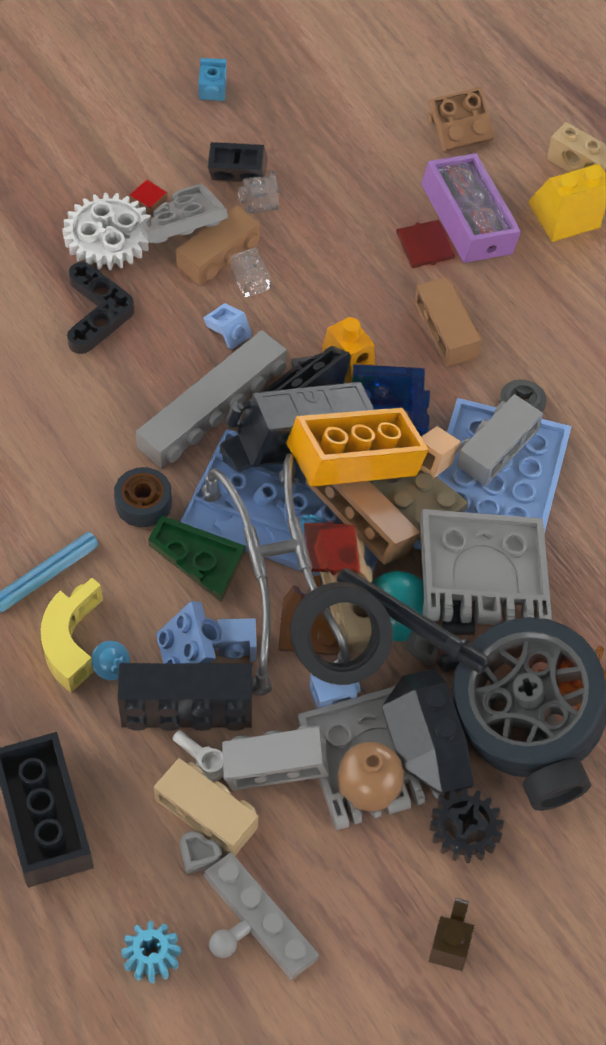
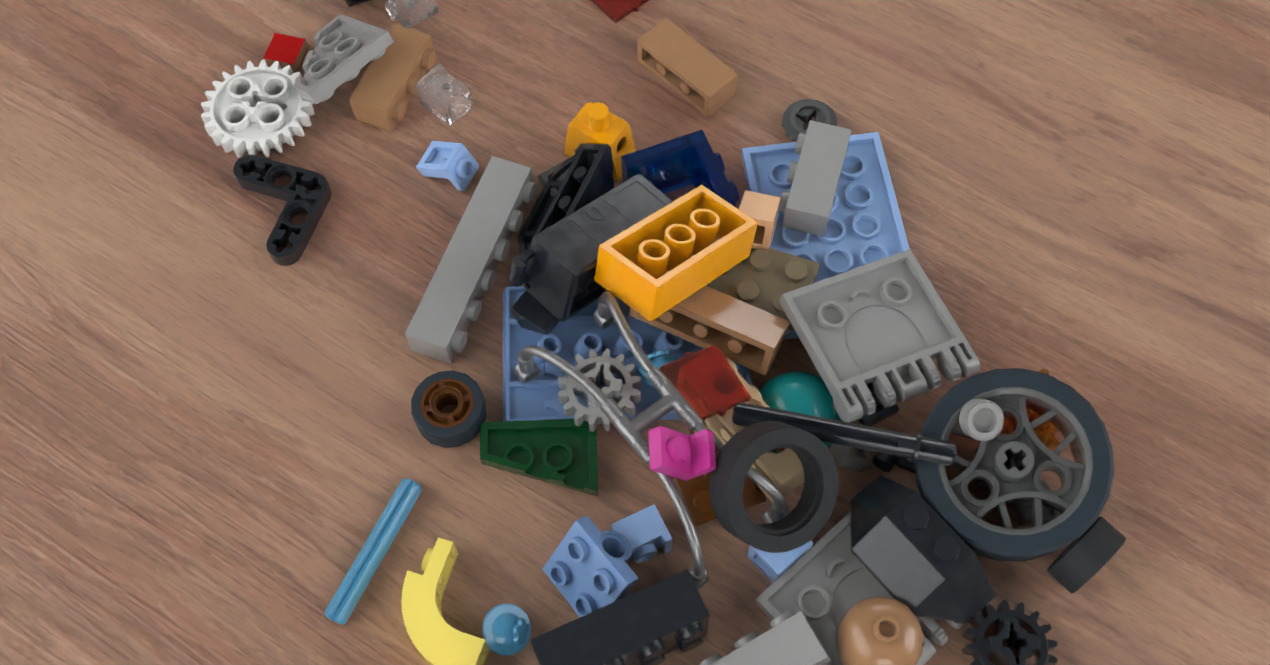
camera: 20 degrees left, 5 degrees up
(260, 514) = (599, 369): none -> light grey gear
(282, 581) = (681, 454): none -> dark pink bracket
(518, 650) = (981, 419): none -> light grey tile

